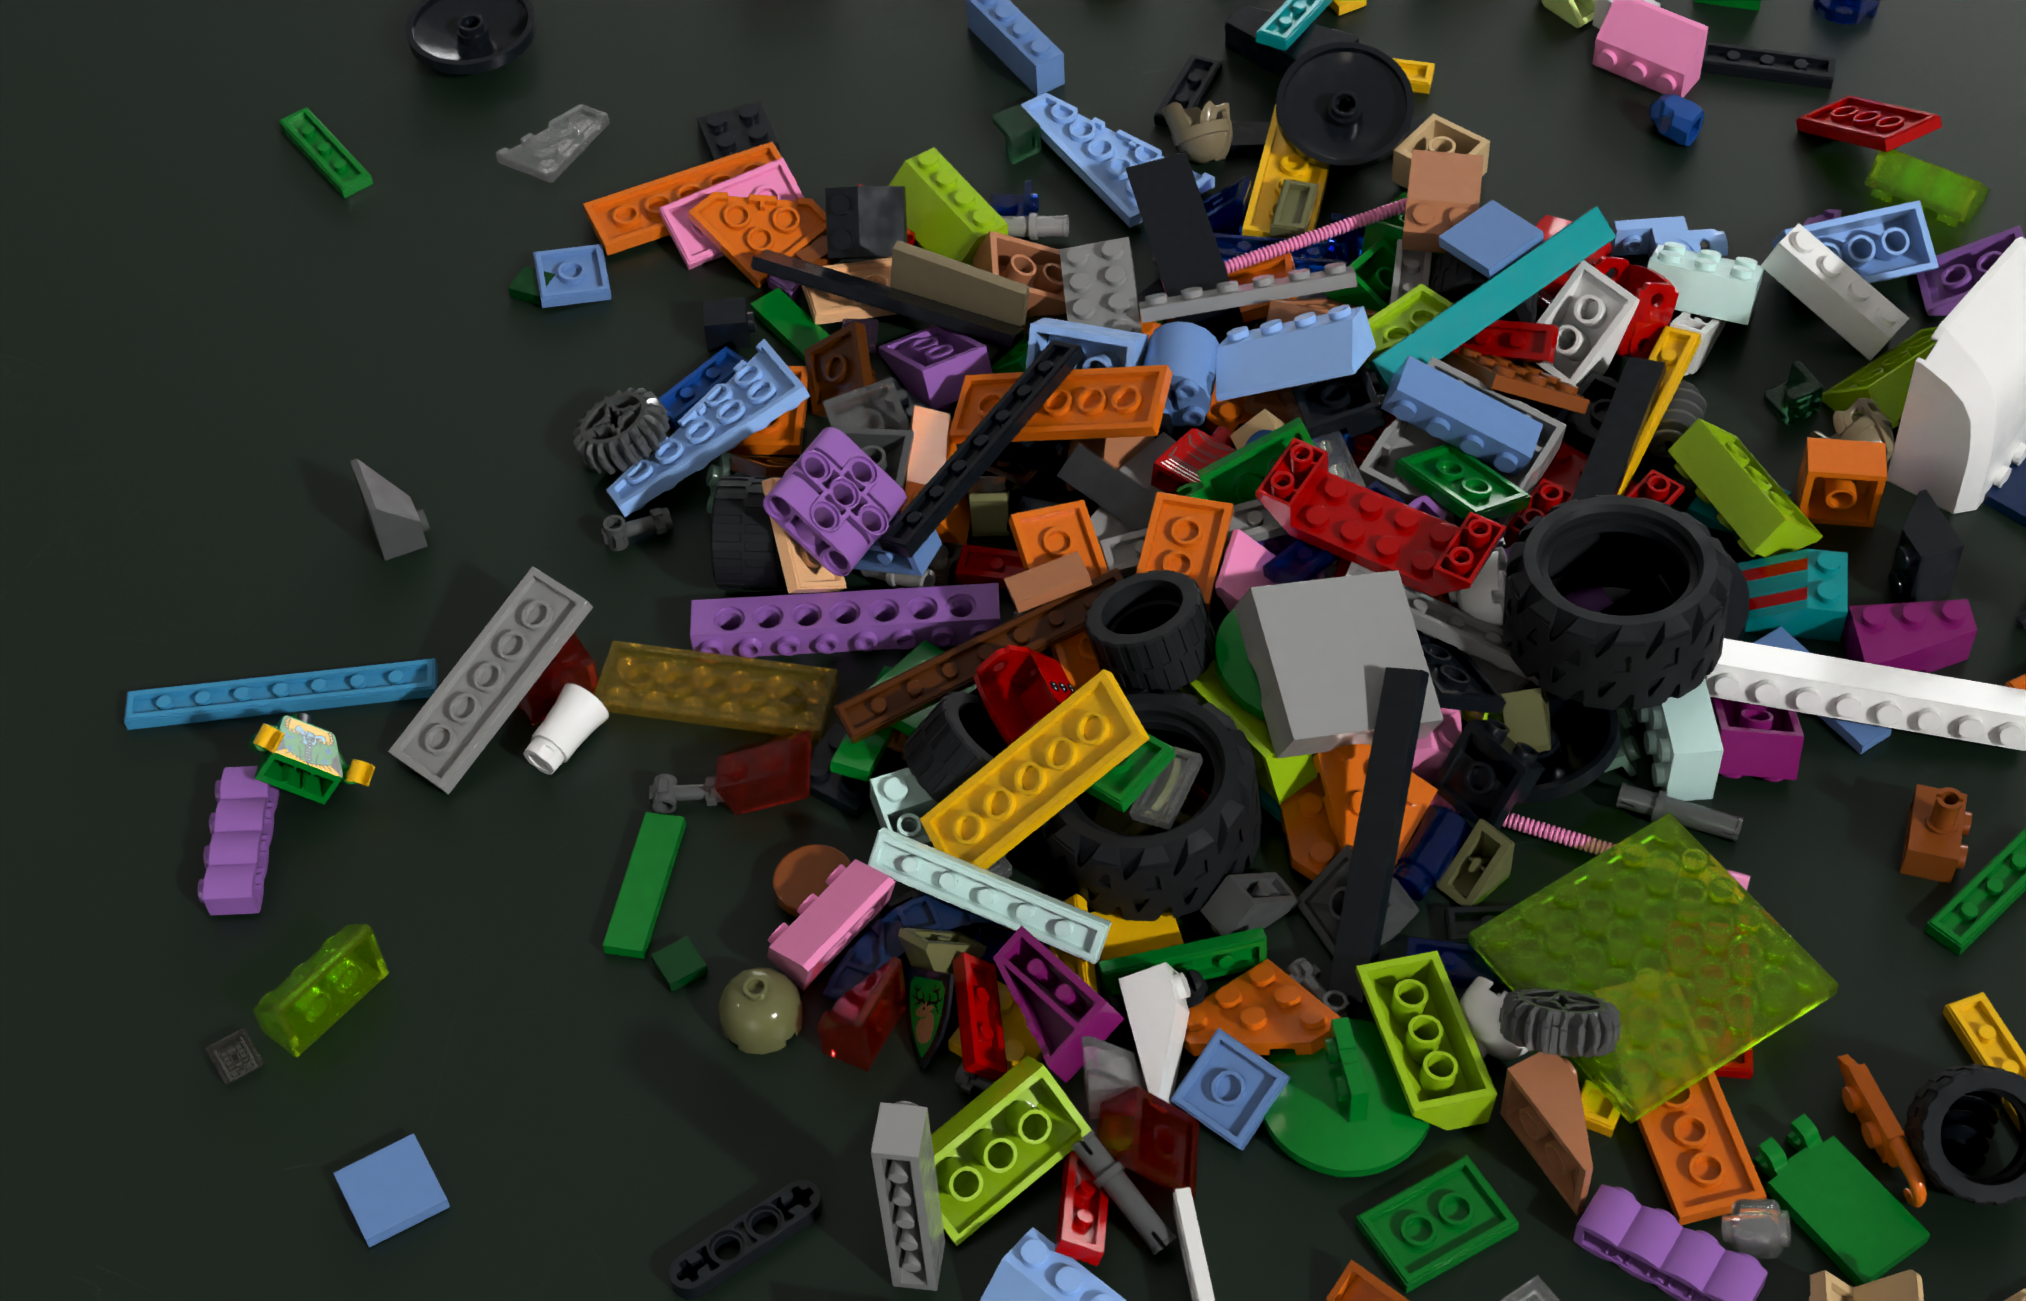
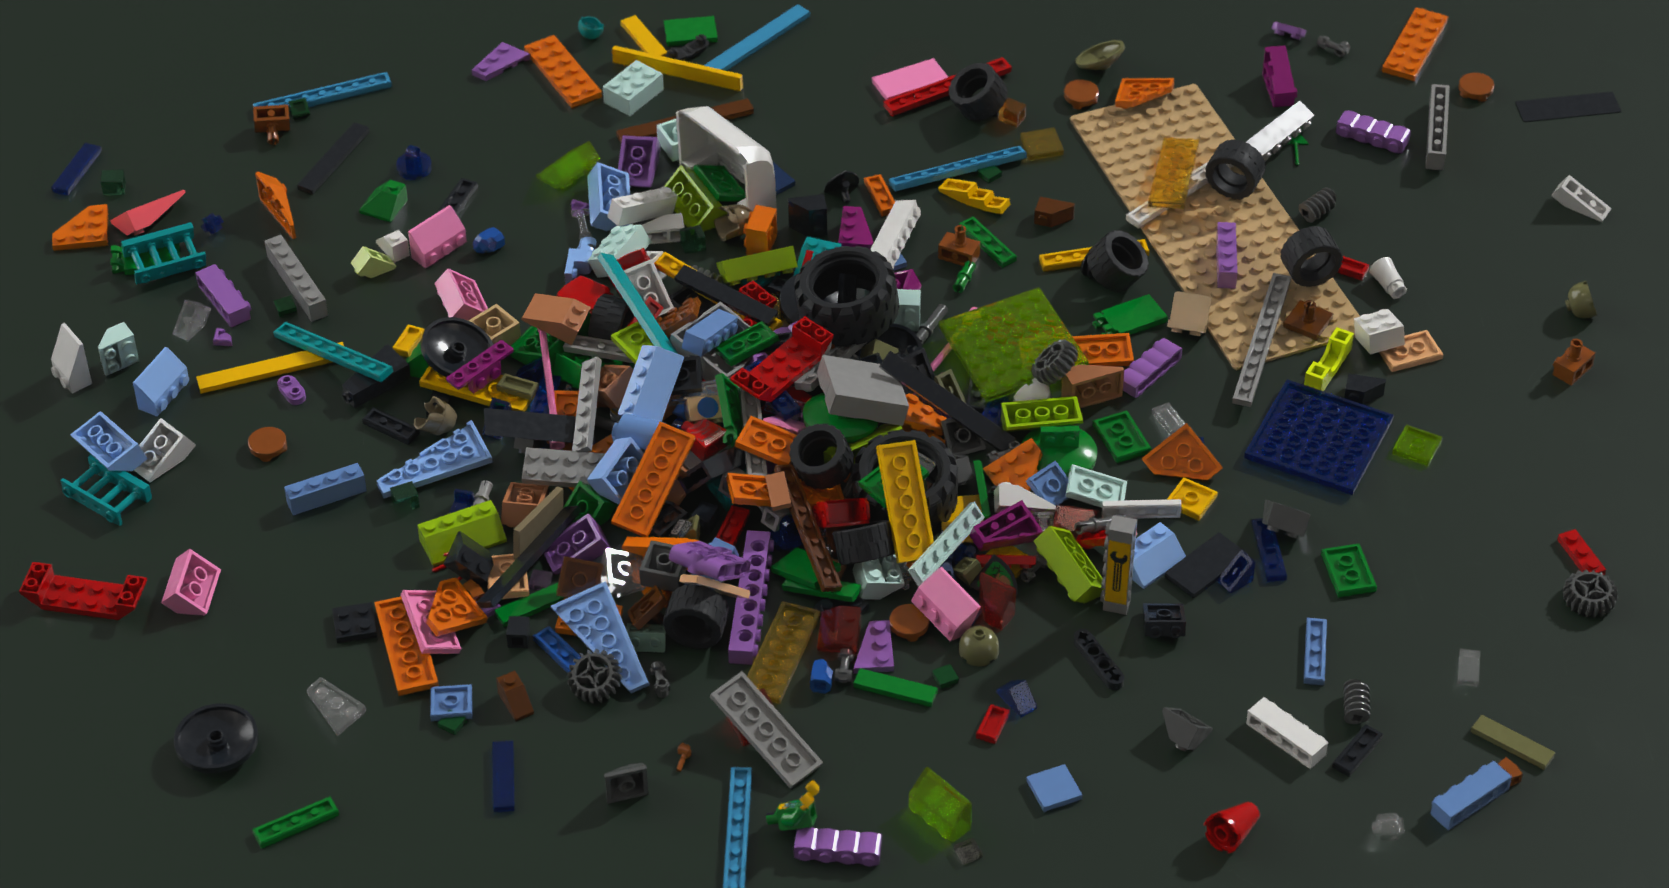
camera: 85 degrees left, 5 degrees down
(417, 366) = (503, 776): none -> clear blue tile
(471, 591) = (685, 751): none -> dark orange hand
(560, 1062) = (992, 724): none -> red tile
(565, 728) = (796, 710): white plant -> none
(583, 343) = (514, 695): none -> reddish brown slope
(629, 1093) = (1018, 697): none -> clear blue slope
(656, 754) = (821, 677): none -> blue rock
(741, 840) = (876, 649): none -> medium lavender wing
(980, 448) = (677, 506): black tile -> none
(1244, 1179) = (1094, 487): none -> light aqua tile
(1305, 145) = (481, 369): none -> magenta bracket
(1491, 239) = (603, 296): medium blue tile -> none
(1519, 112) = (460, 295): none -> bright pink slope
(1748, 243) = (580, 214): none -> clear piece
(1757, 1228) = (1141, 339): clear head -> none
(1800, 338) = (665, 228): none -> white slope
(1857, 857) = (964, 276): none -> green pin
(1868, 123) = (526, 171): red tile -> none
(1880, 1126) = (1099, 295): orange plate -> none

